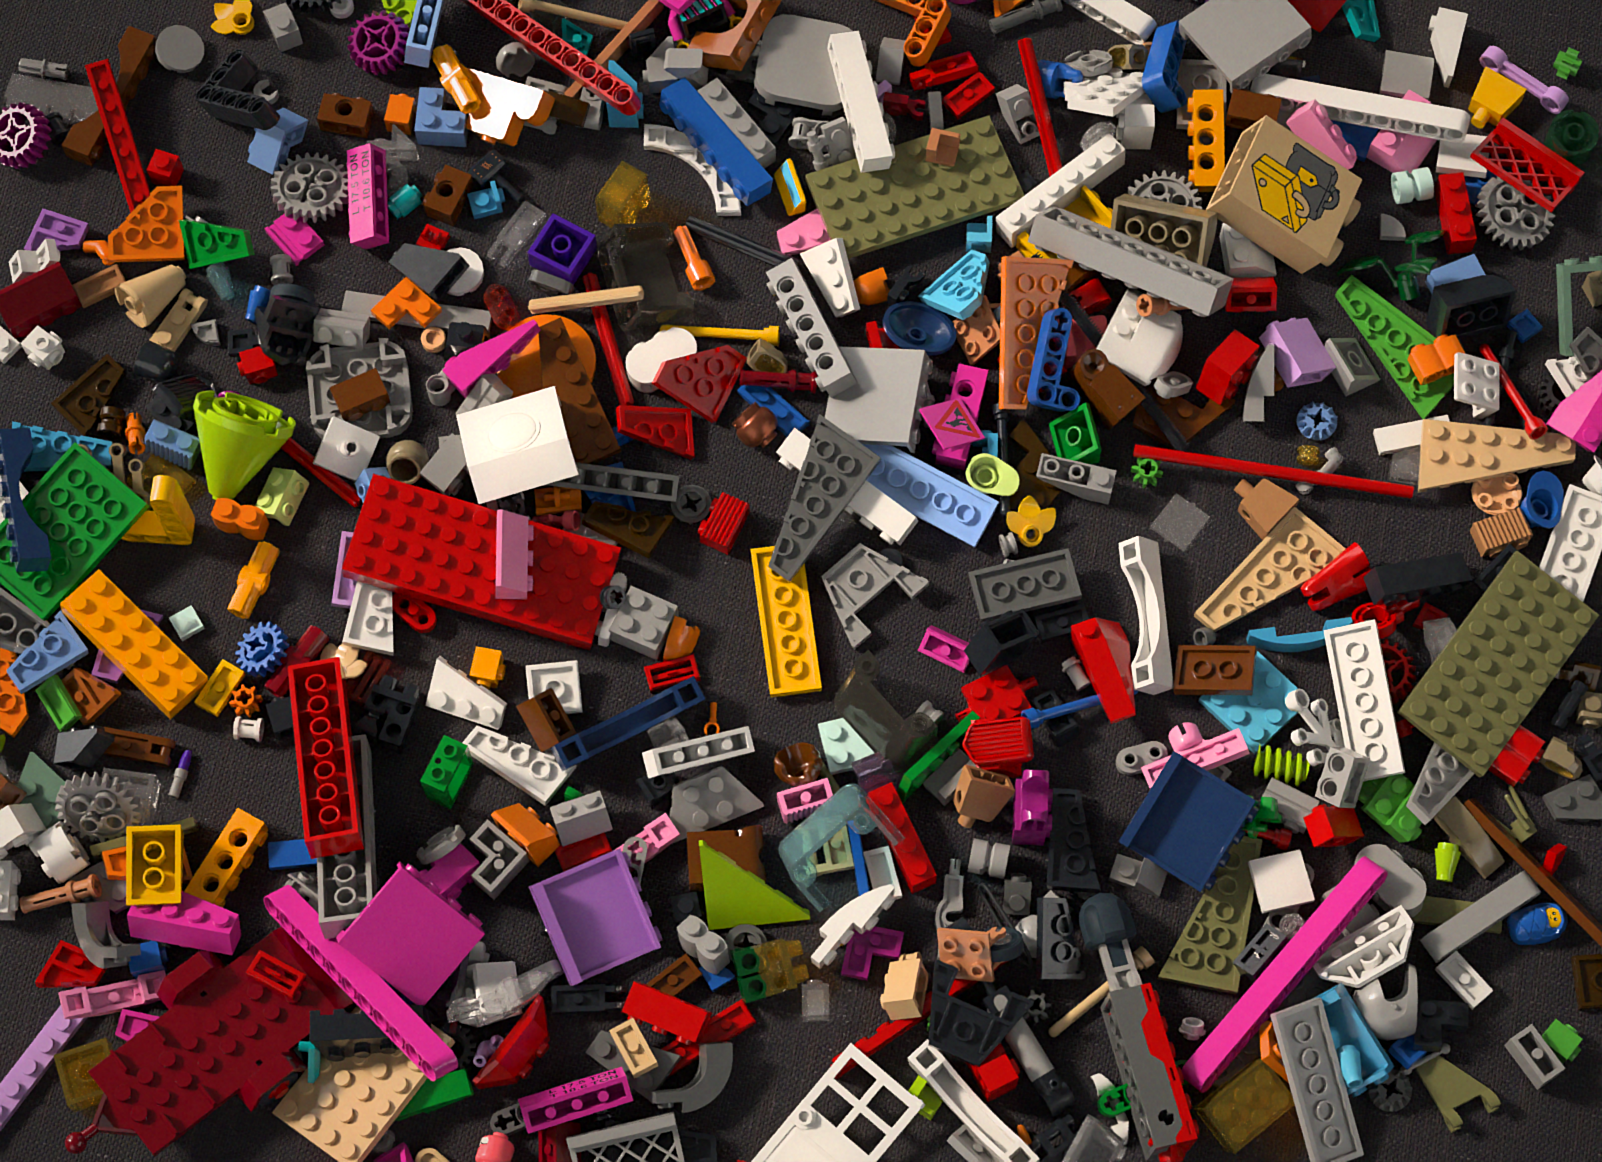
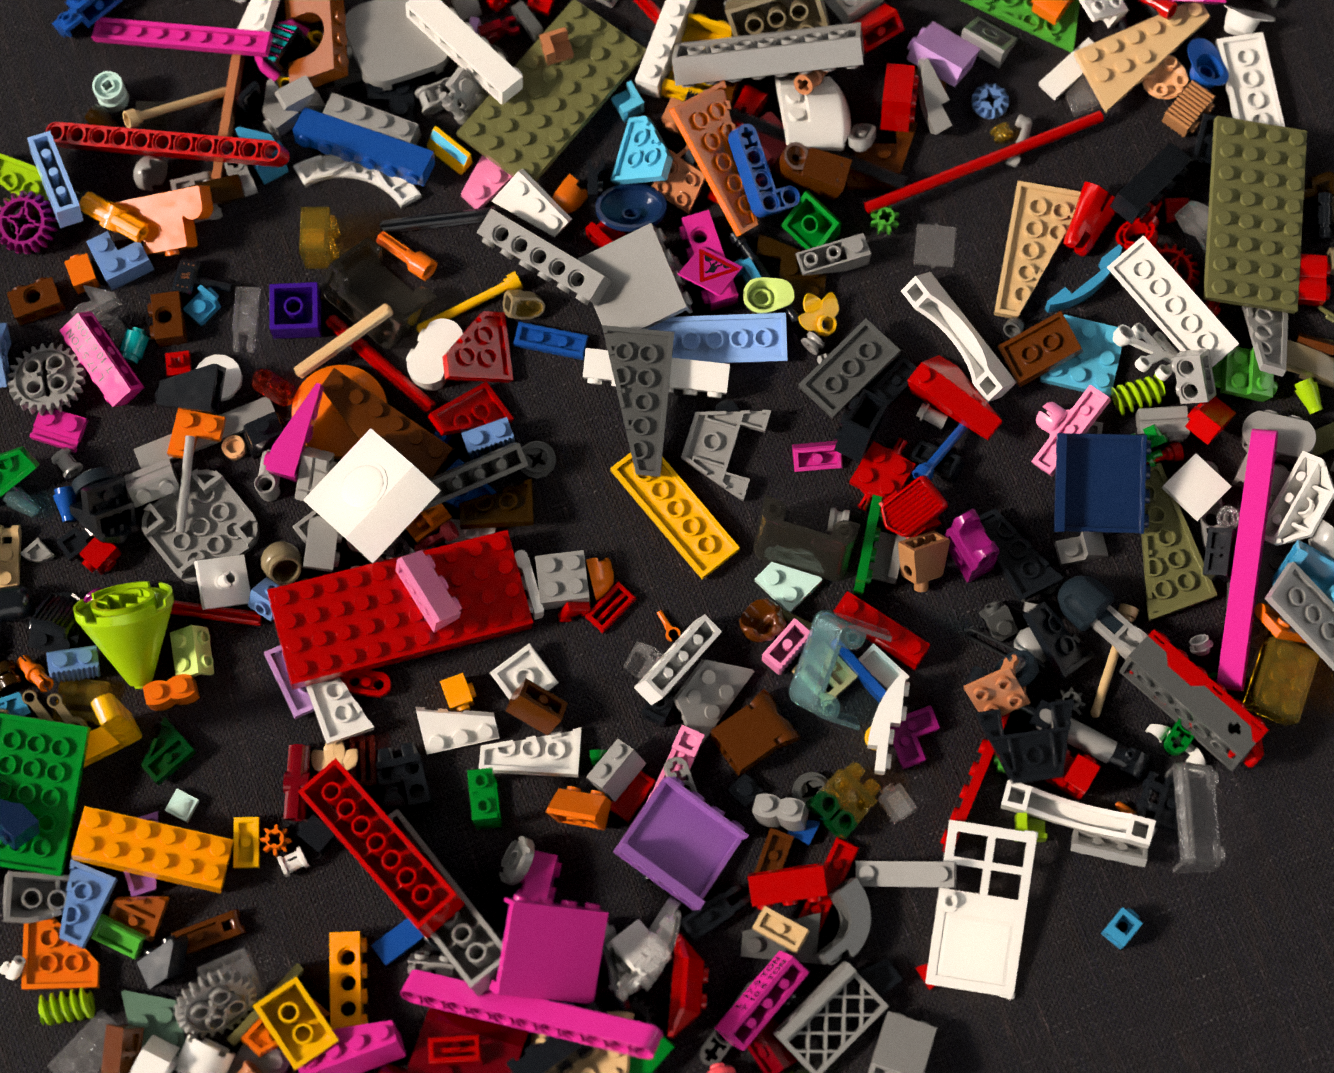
camera: 30 degrees left, 5 degrees up
(180, 774) = (260, 933): light grey piece -> none
(202, 570) = (166, 753): none -> dark green wing
(253, 580) = (215, 736): light orange piece -> none
(262, 649) = (262, 789): blue gear -> none
(360, 395) = (206, 530): reddish brown brick -> none
(369, 343) = (185, 484): none -> light grey bar
(486, 1050) = (661, 1002): lavender arm -> none
(502, 860) = (574, 840): light grey brick -> none
(549, 284) = (302, 345): dark grey beam -> none
(576, 37) = (187, 123): teal piece -> none
(605, 595) = (533, 573): black bush -> none
(628, 723) = (604, 669): dark blue arch -> none
(636, 654) = (572, 609): none -> red tile
(659, 458) = (487, 438): none -> medium blue brick
(724, 523) = (574, 458): red brick -> none
(740, 896) = (786, 755): lime tile -> none
(756, 426) = (549, 364): copper piece -> none
(781, 1069) = (906, 874): none -> light grey plate
(791, 380) = (553, 310): dark red pin -> none
(873, 771) = (825, 591): clear purple brick -> none
(905, 987) = (962, 749): tan brick -> none
(952, 897) = (951, 659): light grey piece -> none
(988, 858) = (958, 606): light grey wheel -> none
(1141, 757) = (1025, 452): light grey plate -> none
(1264, 505) = (994, 193): medium nougat torso -> none

